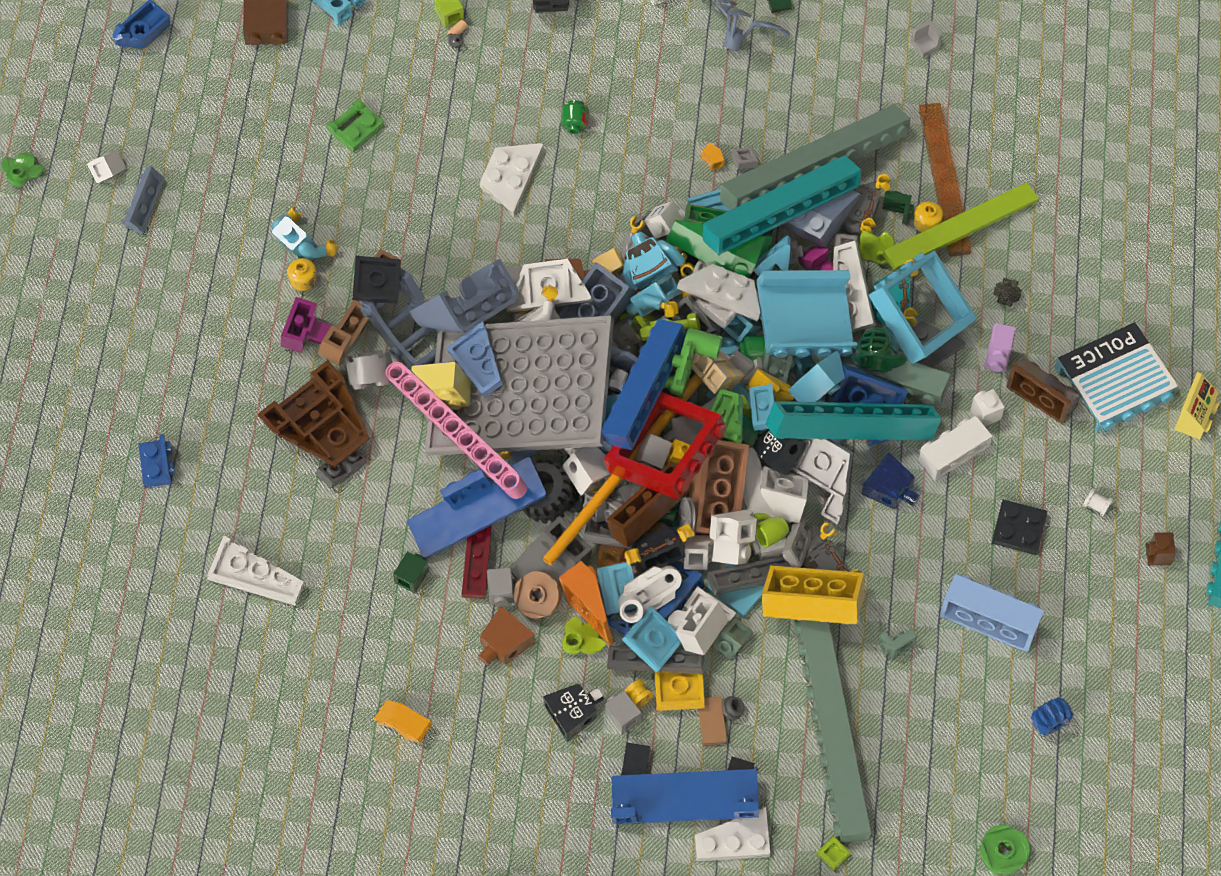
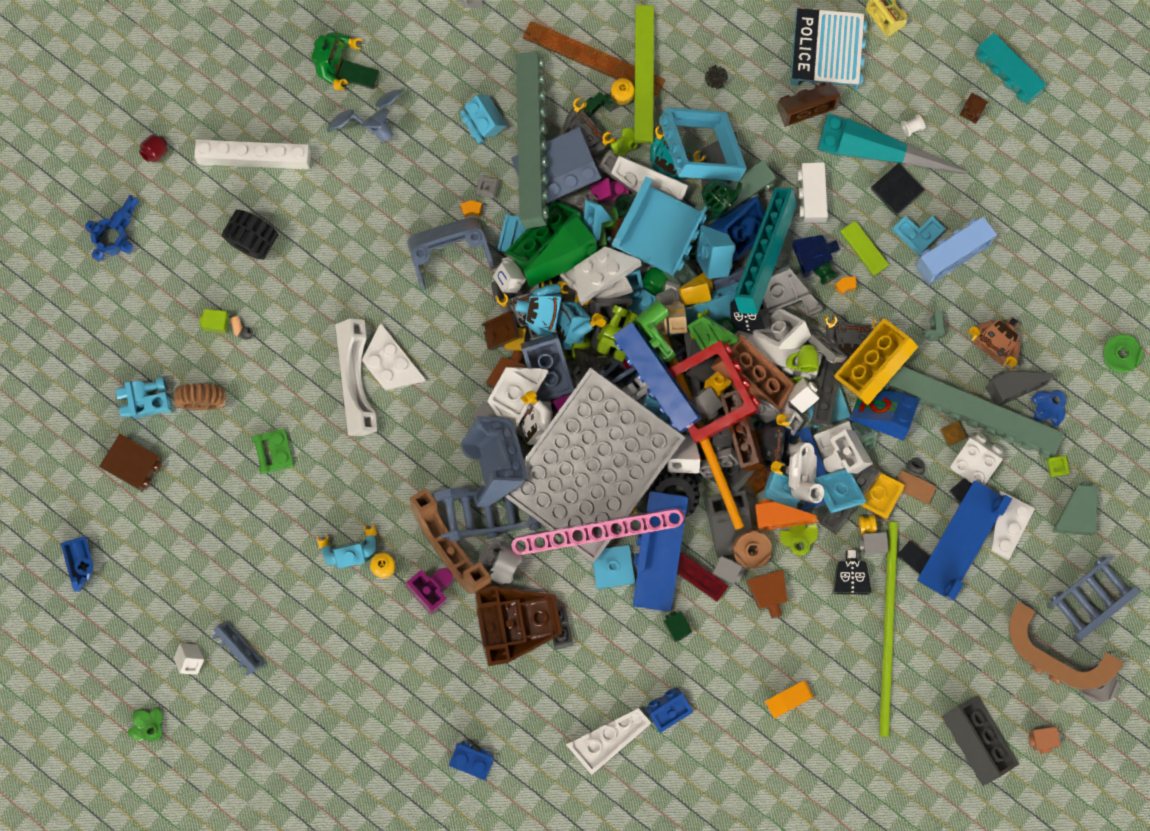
camera: 55 degrees left, 15 degrees up
(319, 612) = (668, 709): none -> blue bracket
(365, 32) = (200, 397): none -> medium nougat gear
(376, 279) = (439, 516): black plate -> none
(430, 478) = (614, 568): none -> medium azure plate
(446, 382) = (561, 517): light yellow slope -> none
(476, 358) = (552, 482): medium blue wing -> none
(499, 130) = (351, 341): none -> white arch
(541, 779) = (888, 630): none -> lime piece
(574, 116) = (373, 286): green head -> none
(606, 245) = (500, 330): none -> reddish brown plate
(683, 161) = (465, 229): none -> sand blue windscreen
(734, 527) = (794, 382): white brick -> none
(761, 403) = (715, 305): medium azure plate -> none
(770, 645) = (887, 413): none -> blue slope
(781, 205) = (561, 189): teal brick -> none
(785, 765) = (978, 459): none -> white bracket
(795, 727) = (953, 433): none -> pearl gold plate
(810, 114) = (484, 115): none -> medium azure brick
(878, 506) = (825, 273): none -> dark green wheel
(881, 533) = (845, 284): none -> light orange piece
(887, 753) = (1013, 385): none -> dark grey slope
(889, 806) = (1047, 409): none -> blue plate
(927, 711) = (998, 340): none -> torso
(932, 530) = (864, 248): none -> lime tile
(981, 569) = (918, 238): none -> medium azure plate
(987, 407) = (797, 151): white brick -> none
(1000, 347) = (760, 112): lavender brick -> none
(1041, 458) = (855, 140): none -> teal plate
(1052, 716) = (1051, 260): blue gear -> none

